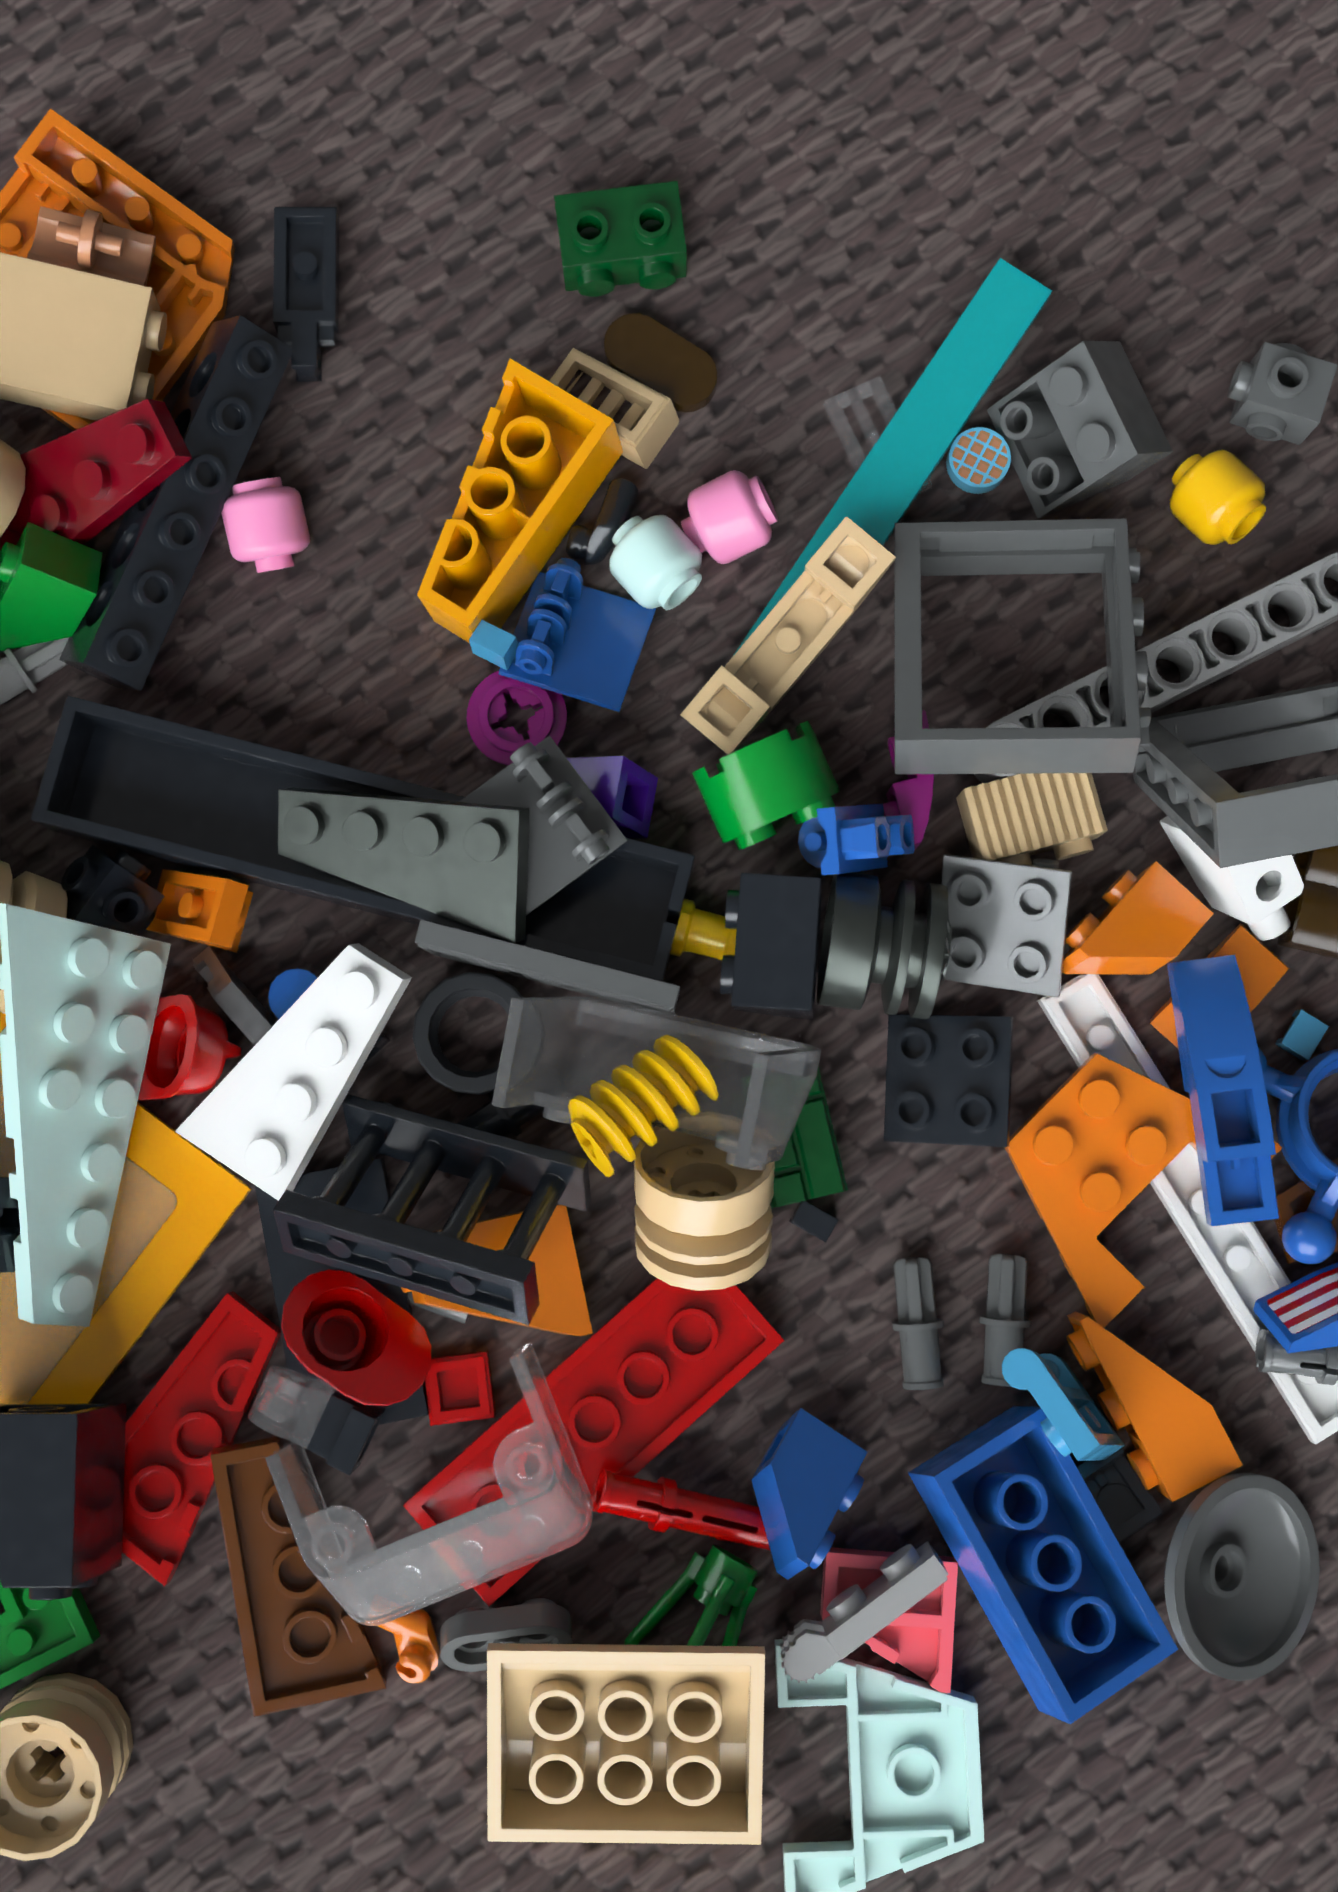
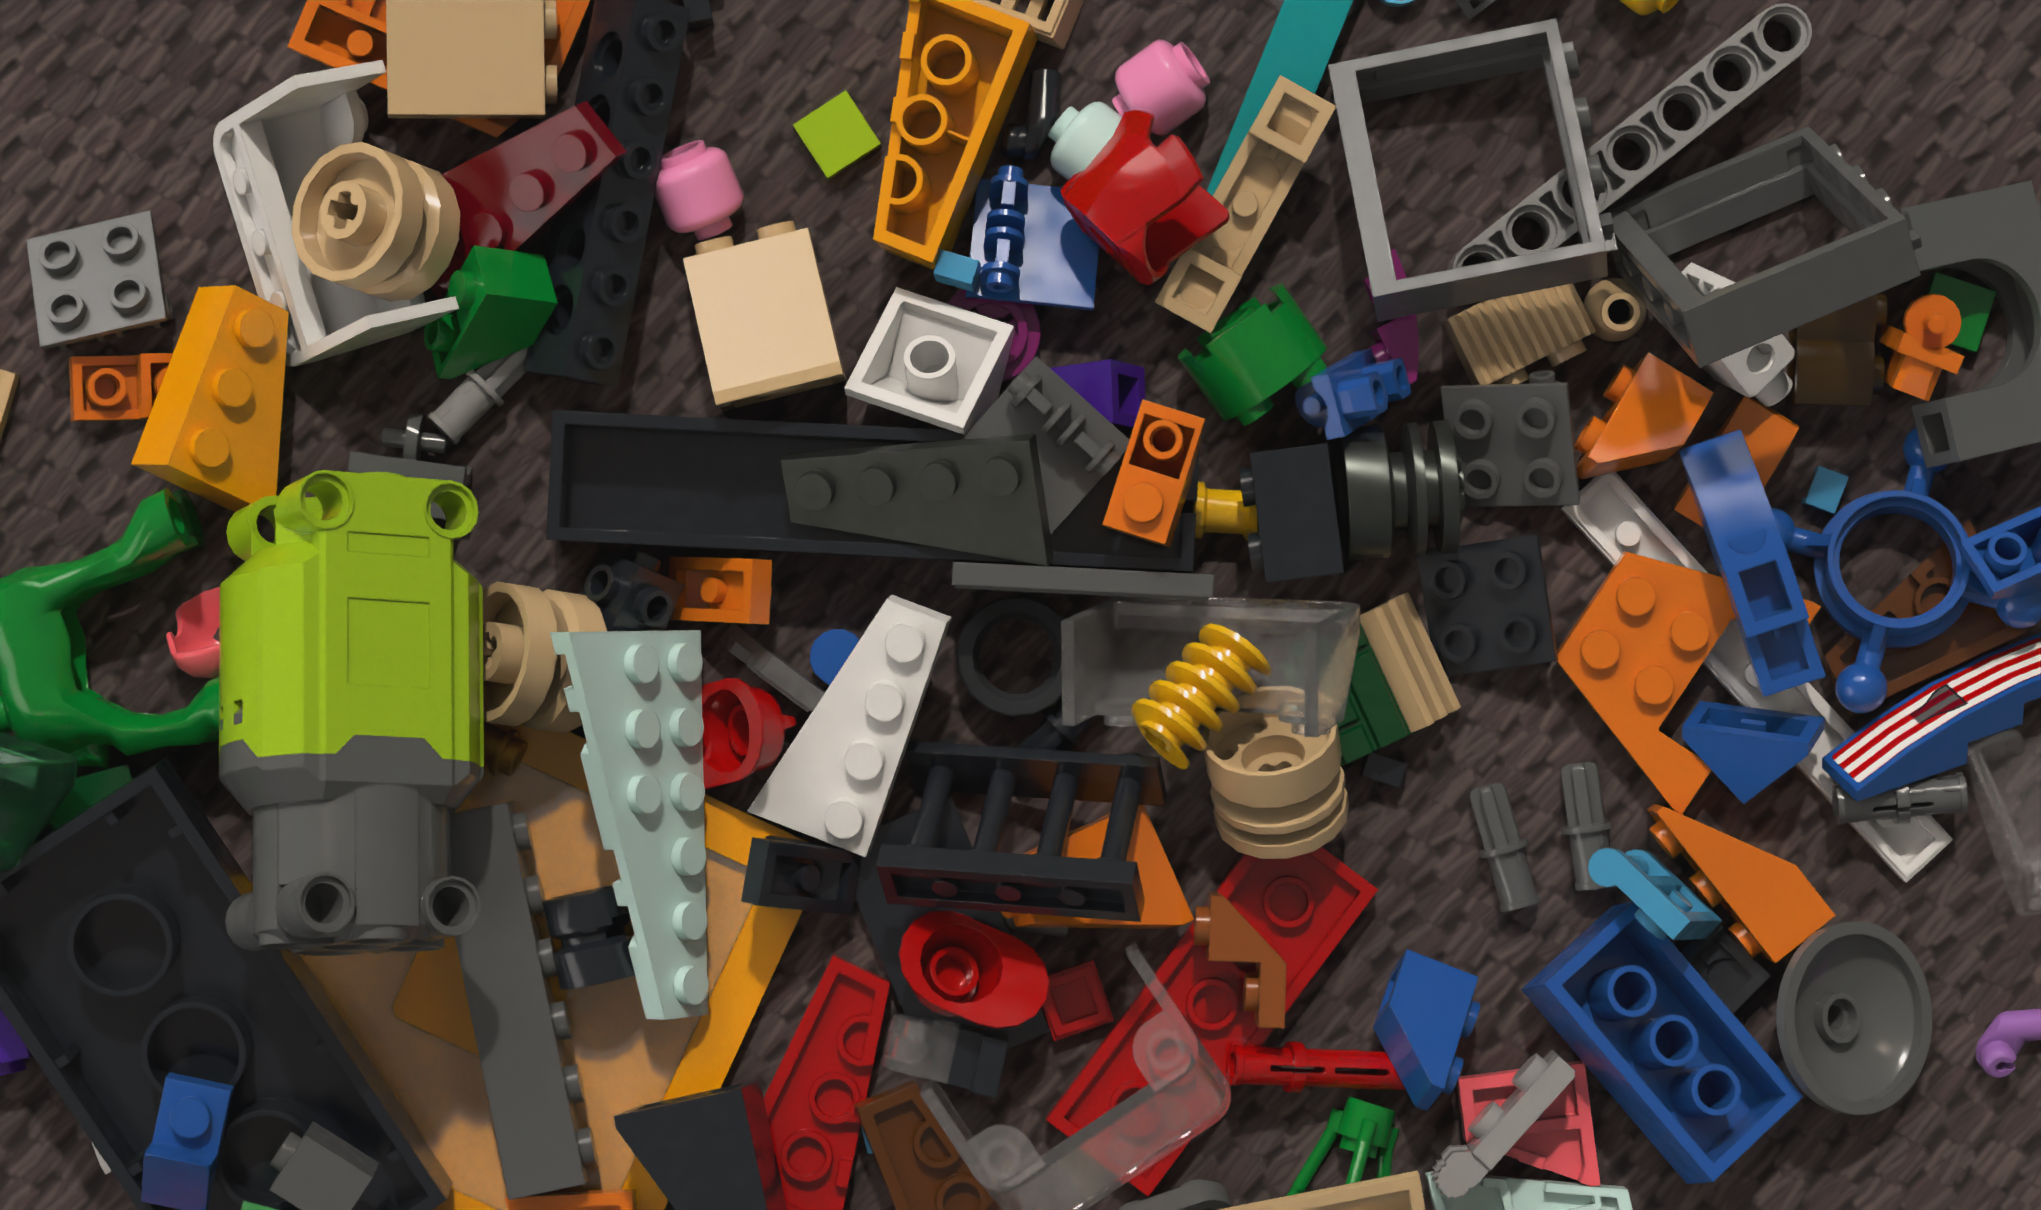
camera: 10 degrees left, 5 degrees up
(206, 1205) = (800, 875): none -> black slope
(298, 657) = (763, 316): none -> tan slope
(412, 503) = (837, 135): none -> lime tile
(450, 726) = (933, 362): none -> white slope
(629, 1363) = (1234, 940): none -> dark orange slope
(641, 873) = (1155, 474): none -> orange slope
(686, 610) = (1143, 199): none -> red piece
(860, 1119) = (1409, 662): none -> tan tile
(1120, 831) = (1597, 304): none -> tan cone
(1186, 1273) = (1749, 744): none -> blue slope

